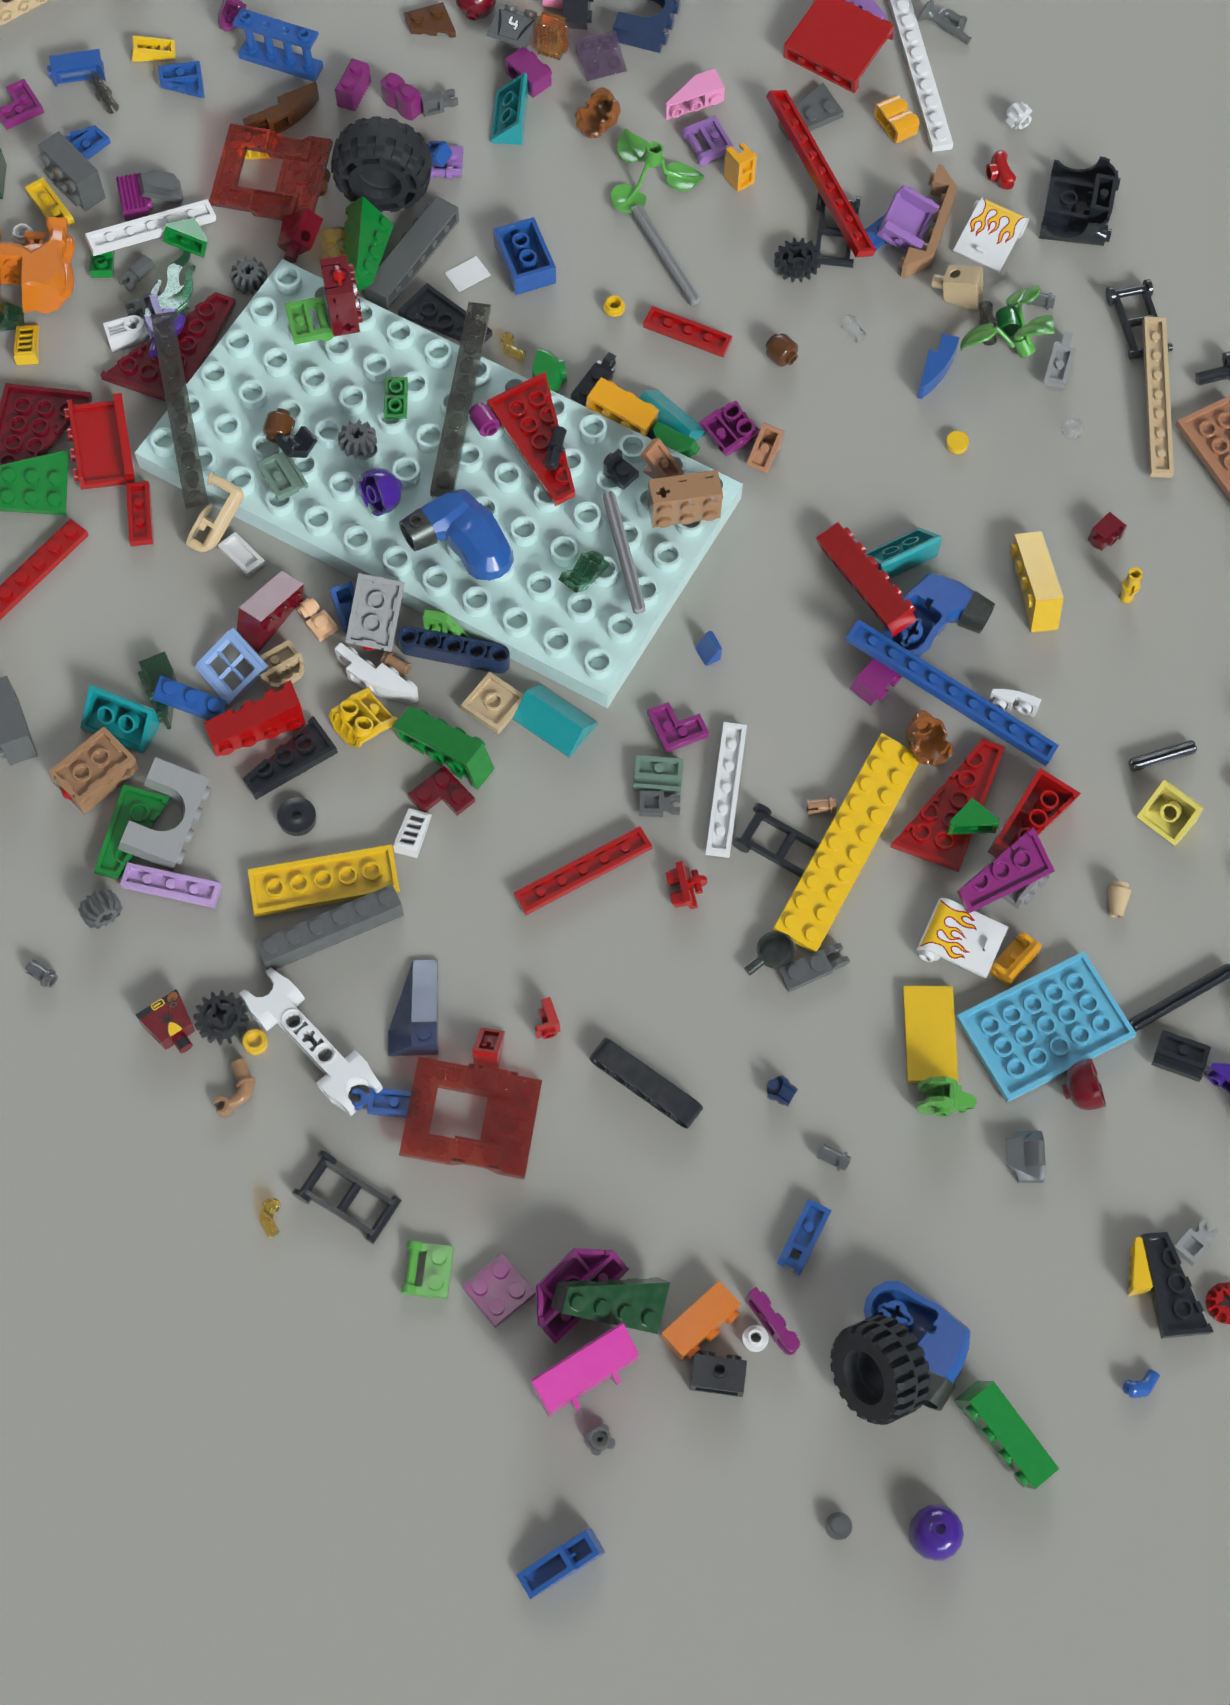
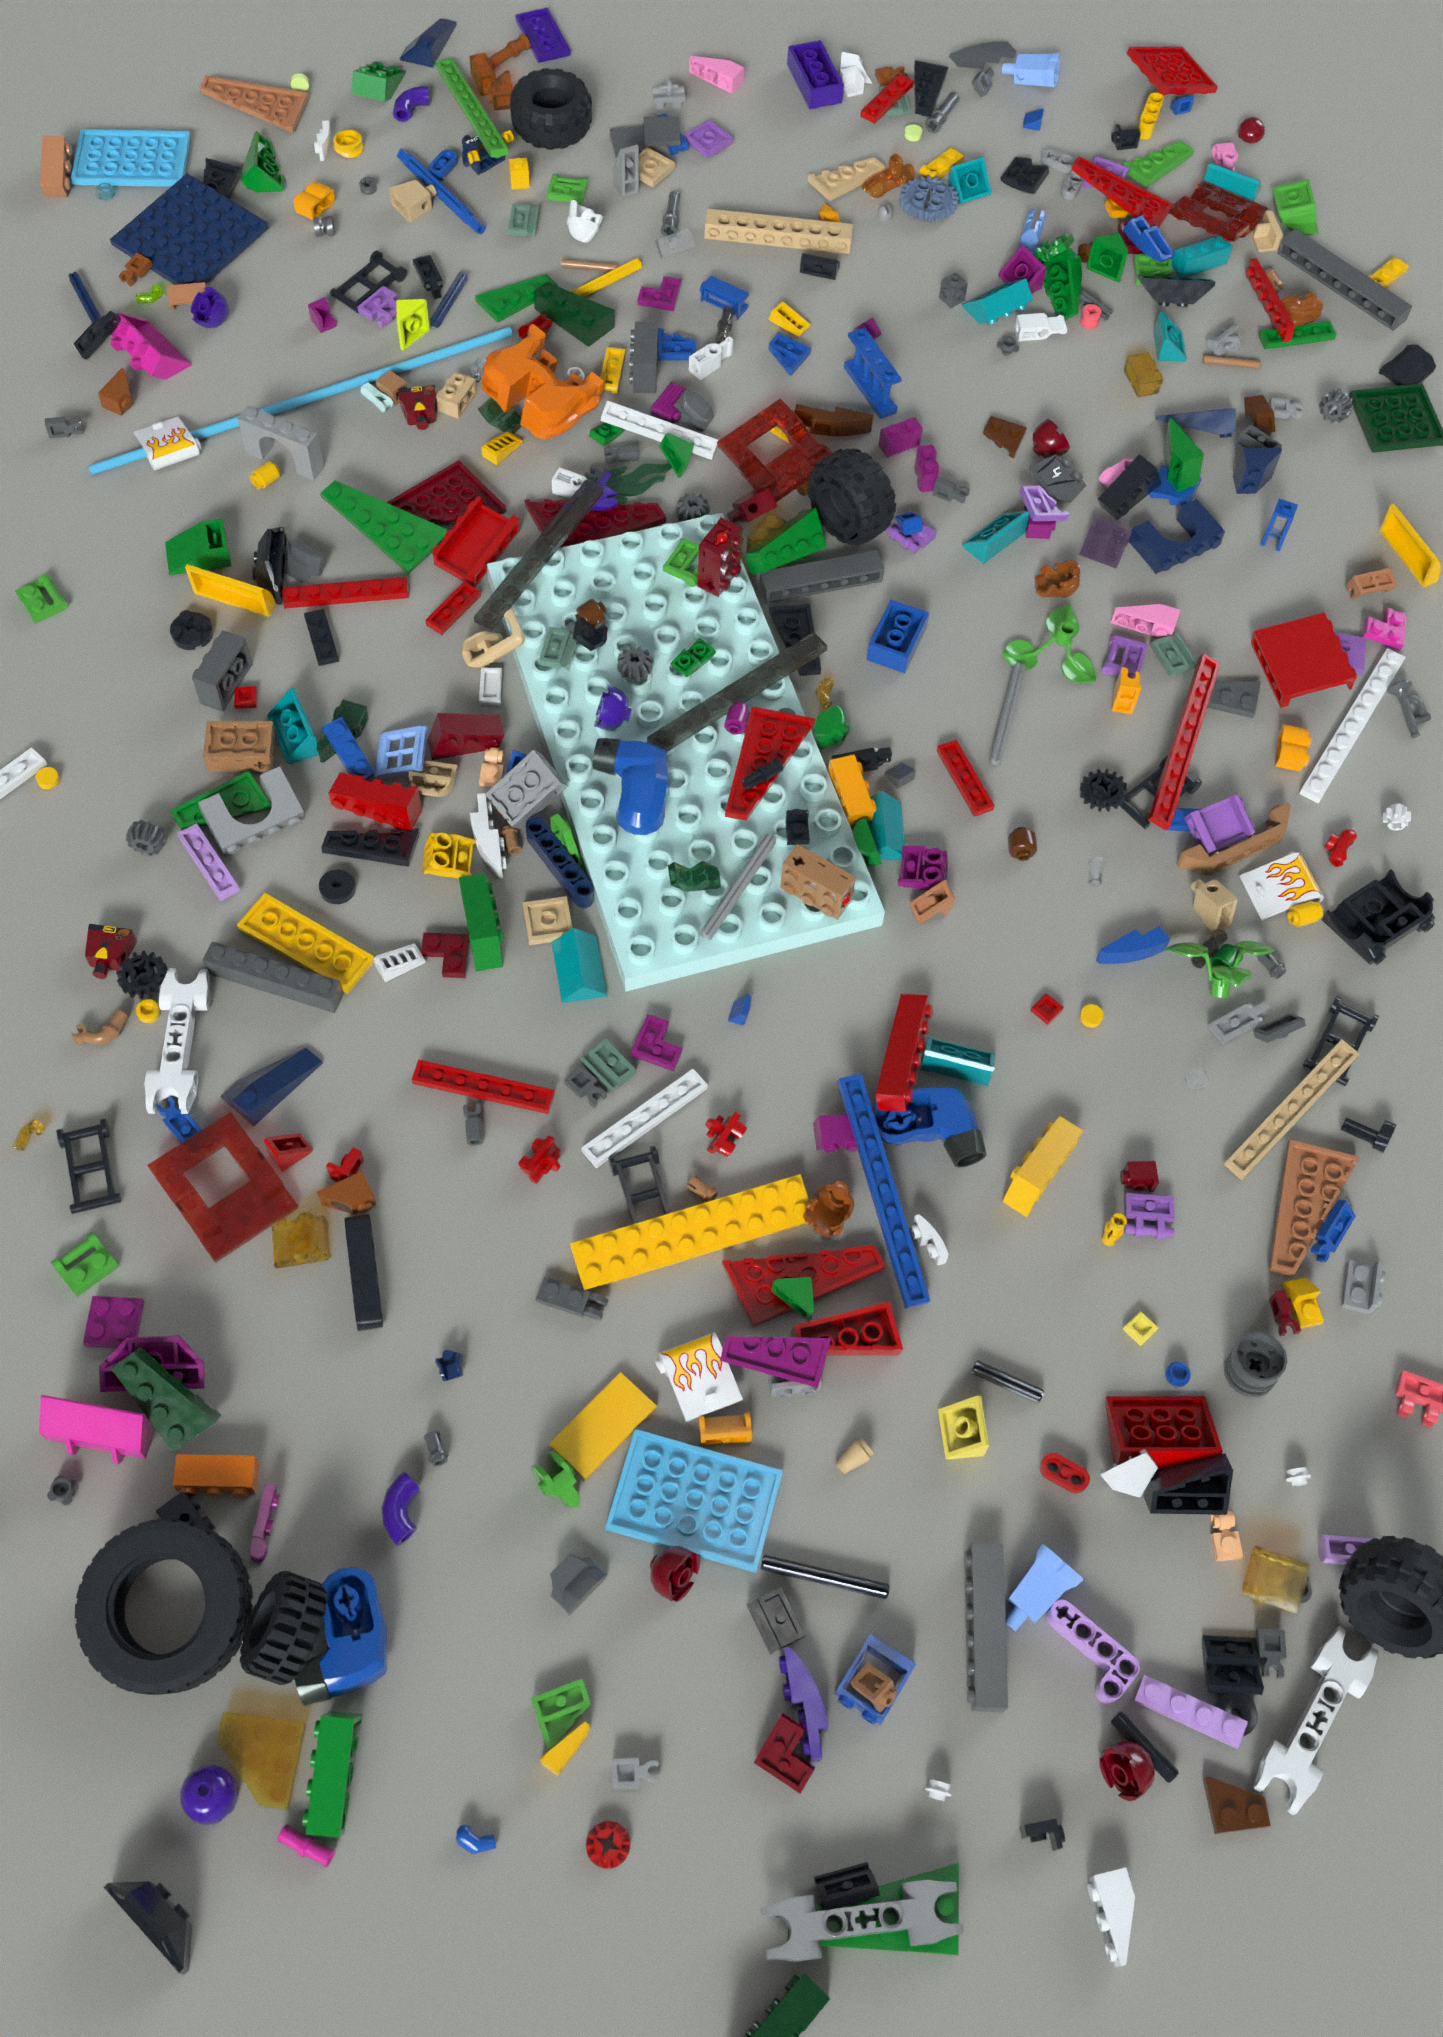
camera: 40 degrees right, 5 degrees down
(45, 728) = (245, 697): none -> red tile
(45, 976) = (69, 852): dark grey pin -> none
(53, 626) = (321, 637): none -> black plate
(123, 133) = (709, 358): none -> white piece
(467, 274) = (848, 621): white sticker -> none
(527, 59) = (1041, 505): none -> medium lavender wing
(552, 35) = (1079, 501): clear orange brick -> none
(572, 1104) = (300, 1240): none -> clear yellow slope
(574, 1037) = (348, 1195): none -> dark orange slope
(606, 905) = (473, 1126): none -> dark grey bar
(614, 301) = (929, 715): yellow plate -> none
(636, 367) = (900, 774): none -> dark grey slope
(660, 461) = (830, 843): nougat slope -> none
(740, 109) = (1173, 654): none -> sand green plate
(755, 1346) = (243, 1531): white plate -> none
(773, 951) = (553, 1261): pearl dark grey piece -> none
(793, 752) = (730, 1126): none -> red hips
(804, 1235) = (352, 1484): blue plate -> none
(836, 1454) = (103, 1597): none -> black tyre
(838, 1526) = (148, 1717): dark grey plate -> none
(853, 1223) = (396, 1508): none -> dark purple cylinder
(921, 463) = (1047, 1009): none -> red tile
(945, 1470) = (263, 1754): none -> clear yellow plate
(994, 1642) = (157, 1918): none -> black wedge
(1027, 242) = (1305, 913): none -> yellow brick
(1038, 1498) = (306, 1845): none -> dark pink pin
(1091, 343) = (1279, 1028): none -> dark grey plate
(1107, 1249) = (560, 1710): none -> bright green wing
(1136, 548) = (1149, 1208): none -> medium lavender plate
(1172, 1296) = (571, 1797): black wing -> none
(1209, 641) = (1140, 1328): none -> light yellow tile

